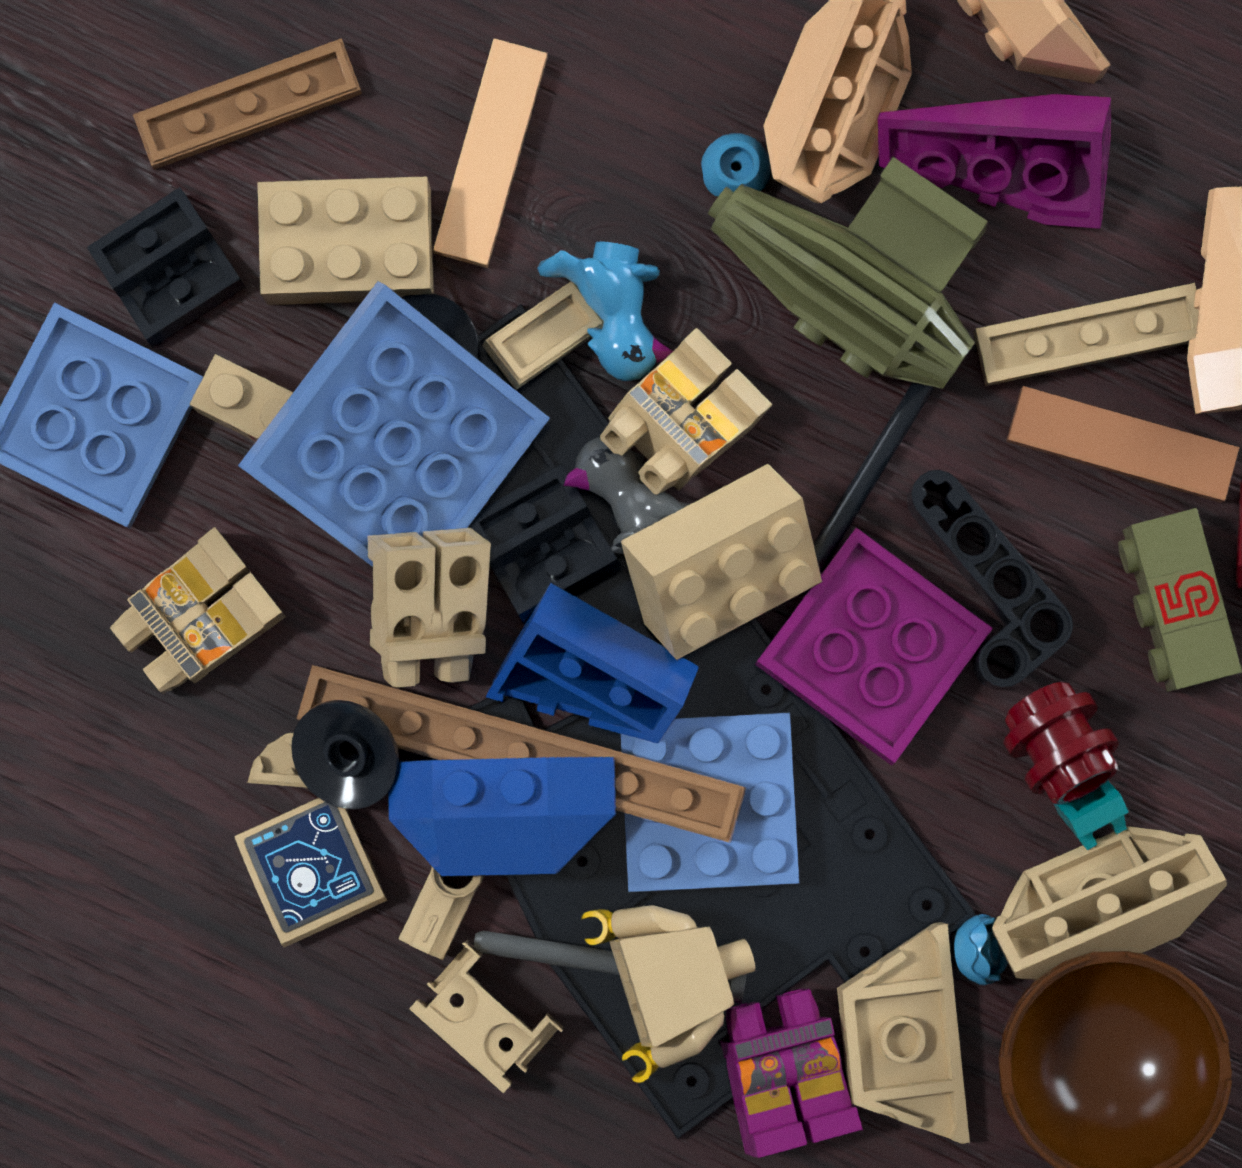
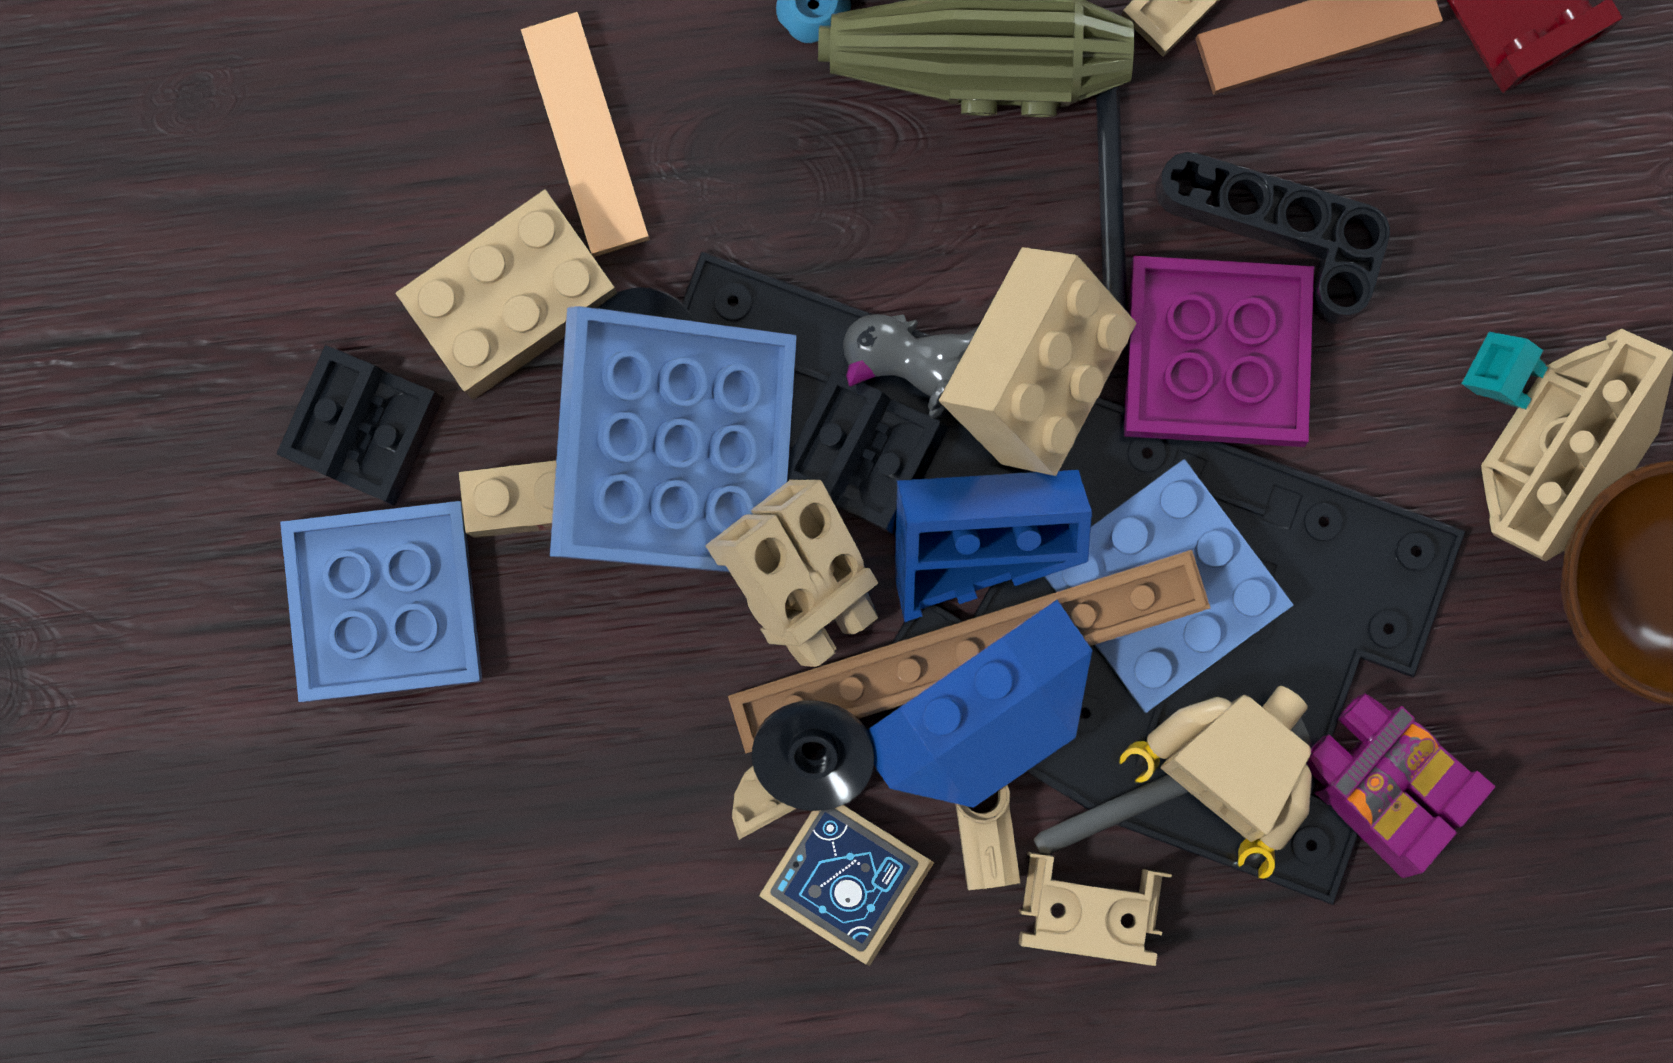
camera: 30 degrees left, 0 degrees up
(179, 616) = (597, 736): tan hips -> none
(247, 104) = (336, 231): medium nougat tile -> none
(542, 335) = (741, 265): tan tile -> none
(615, 291) = (779, 185): dark azure animal -> none
(665, 426) = (910, 274): tan hips -> none
(905, 1037) = (1476, 679): tan wing -> none
(978, 951) = (1490, 560): dark azure plate -> none
(1064, 748) = (1443, 327): dark red piece -> none
(1179, 600) = (1463, 134): olive brick -> none

